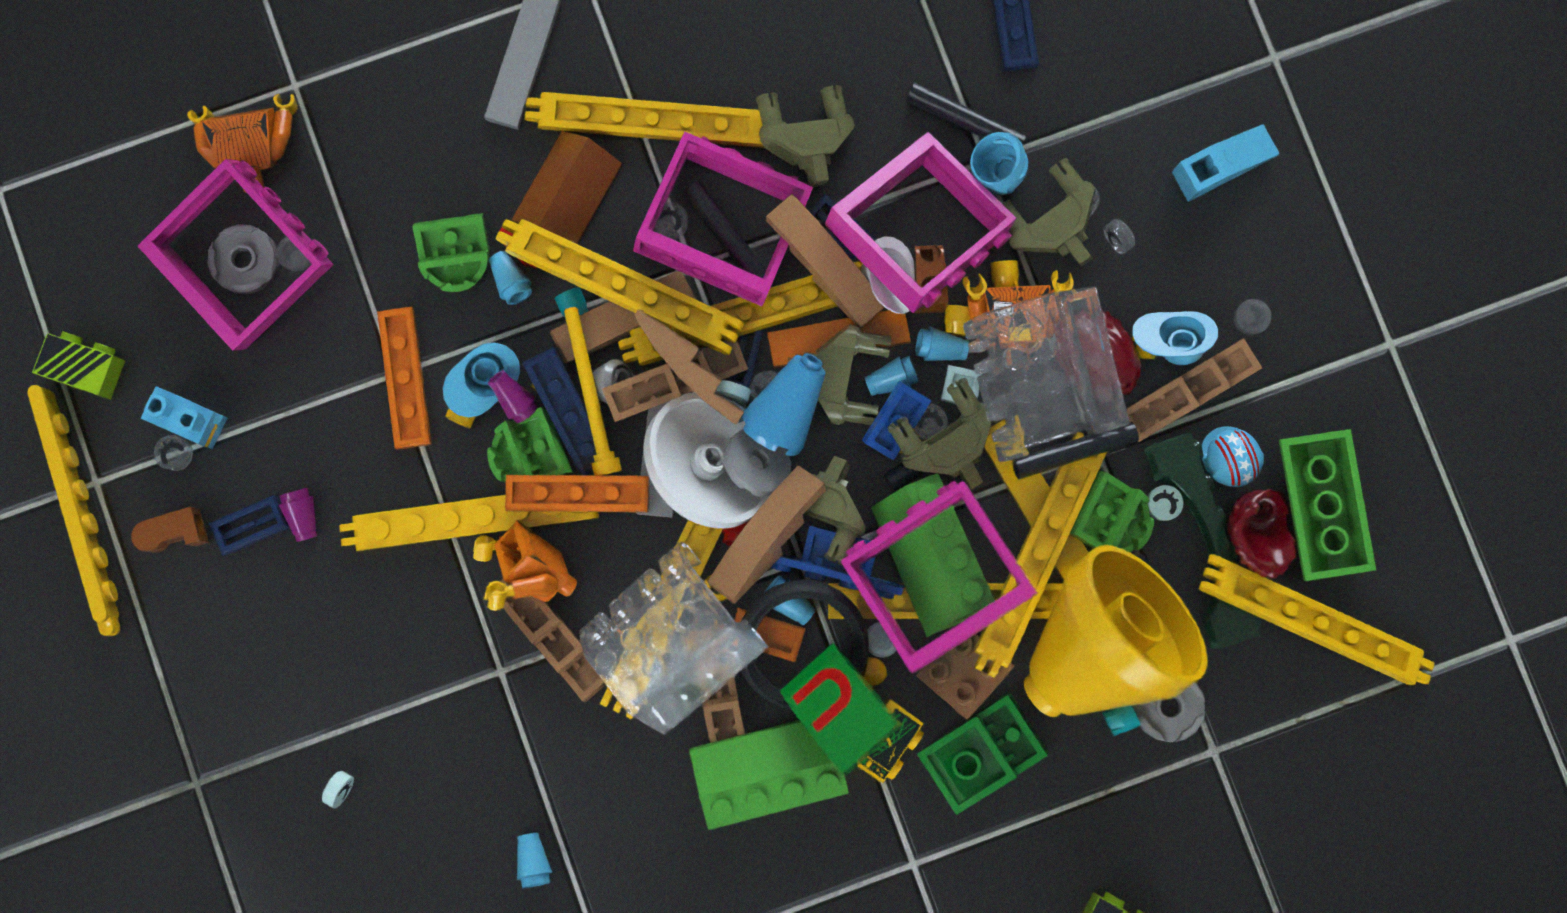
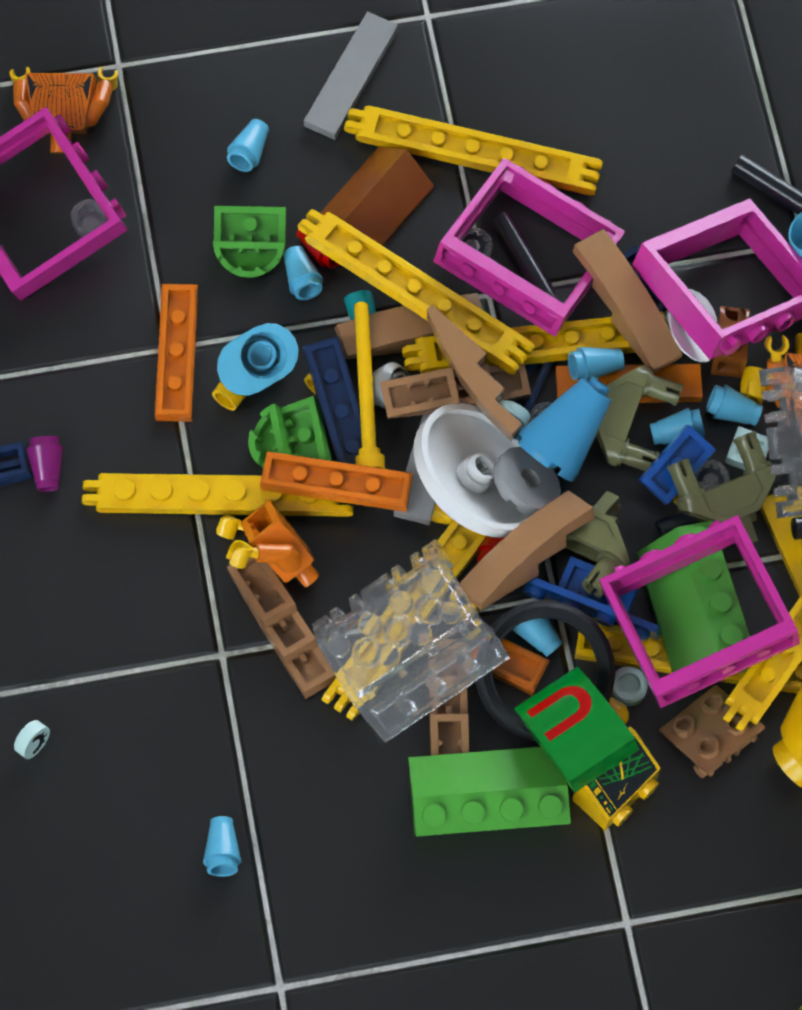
camera: 10 degrees right, 15 degrees down
(259, 271) = (37, 234): light grey tile -> none
(435, 153) = (248, 146): none -> medium azure cone
(513, 398) = (286, 382): magenta cone -> none
(803, 327) = (594, 362): none -> medium azure cone
(806, 142) = (625, 190): olive connector -> none
(983, 753) = (718, 815): green slope -> none

